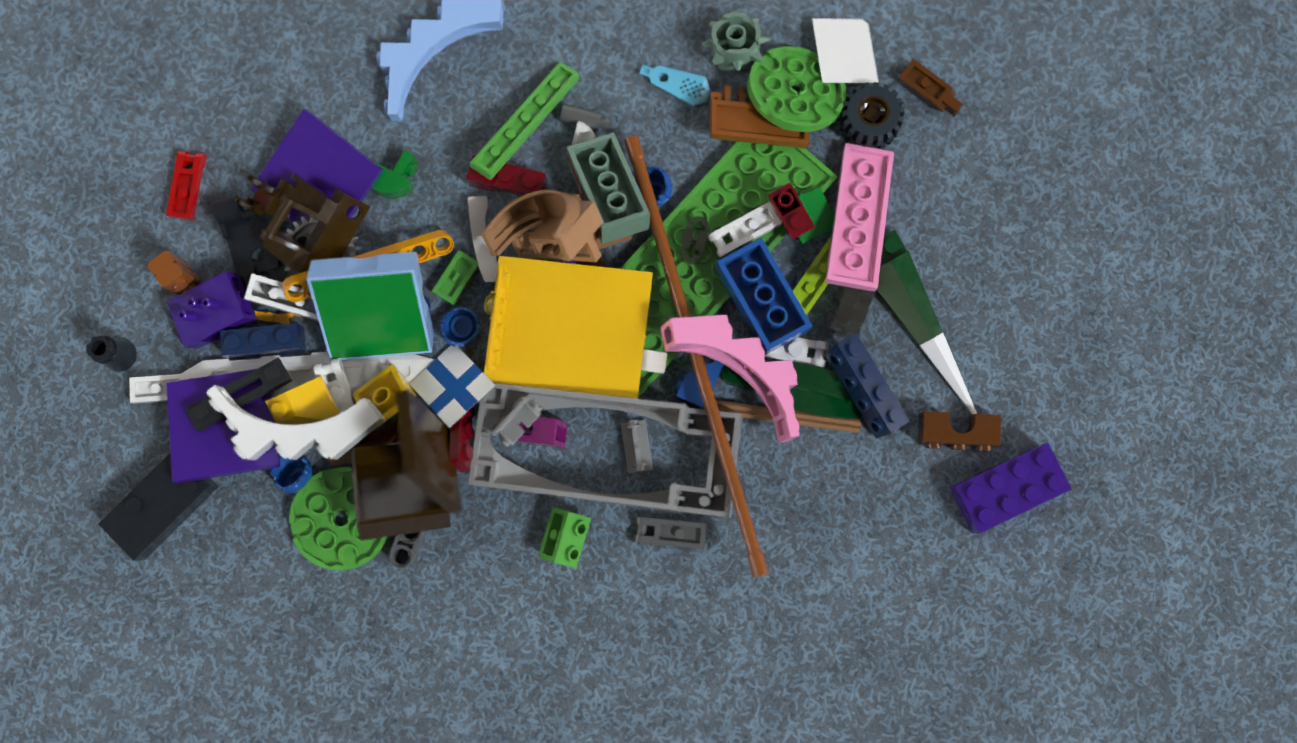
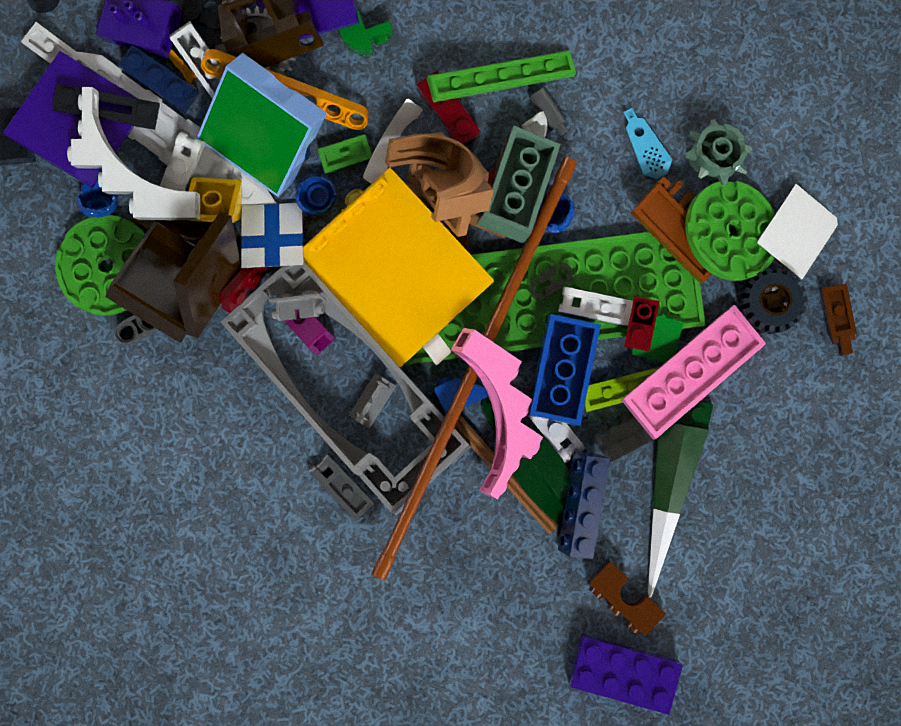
camera: 35 degrees right, 5 degrees up
(303, 404) = (148, 156): yellow slope -> none
(566, 538) = (259, 422): bright green brick -> none

